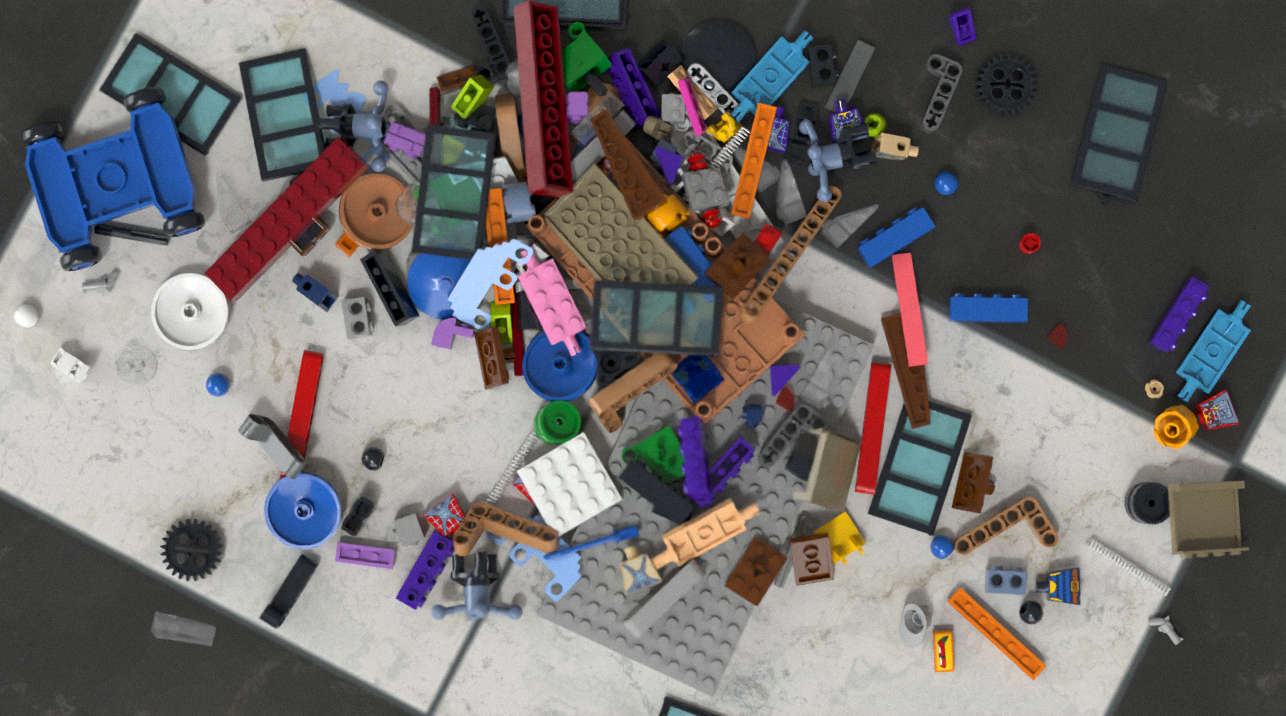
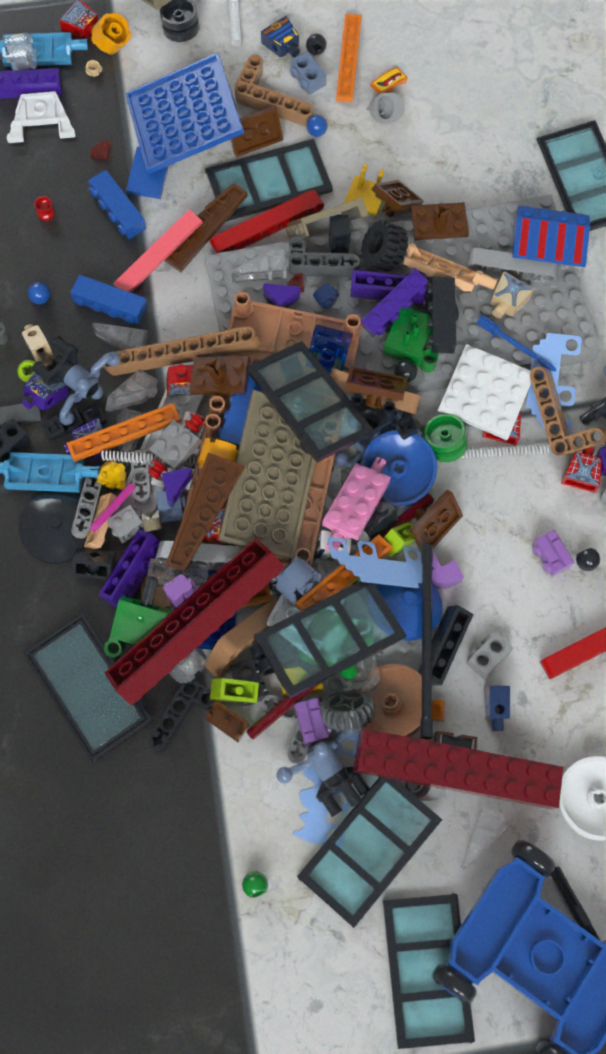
camera: 130 degrees left, 15 degrees down
(322, 13) = (254, 884): none -> green piece
(399, 434) = (552, 553): none -> medium lavender brick
(400, 161) = (347, 710): none -> dark grey gear
(464, 323) = (426, 729): none -> black piece
(582, 393) = (408, 426): none -> black panel
(628, 381) = (376, 385): none -> reddish brown plate
(634, 428) = (407, 369): none -> black piece
(664, 649) = (551, 236): none -> blue slope
(758, 495) = (384, 245): none -> black tyre
(1004, 362) = (142, 183): none -> blue tile
(1036, 430) = (184, 113): none -> blue tile
(1140, 310) = (39, 110): none -> white wing
(1208, 326) = (20, 51): none -> clear brick

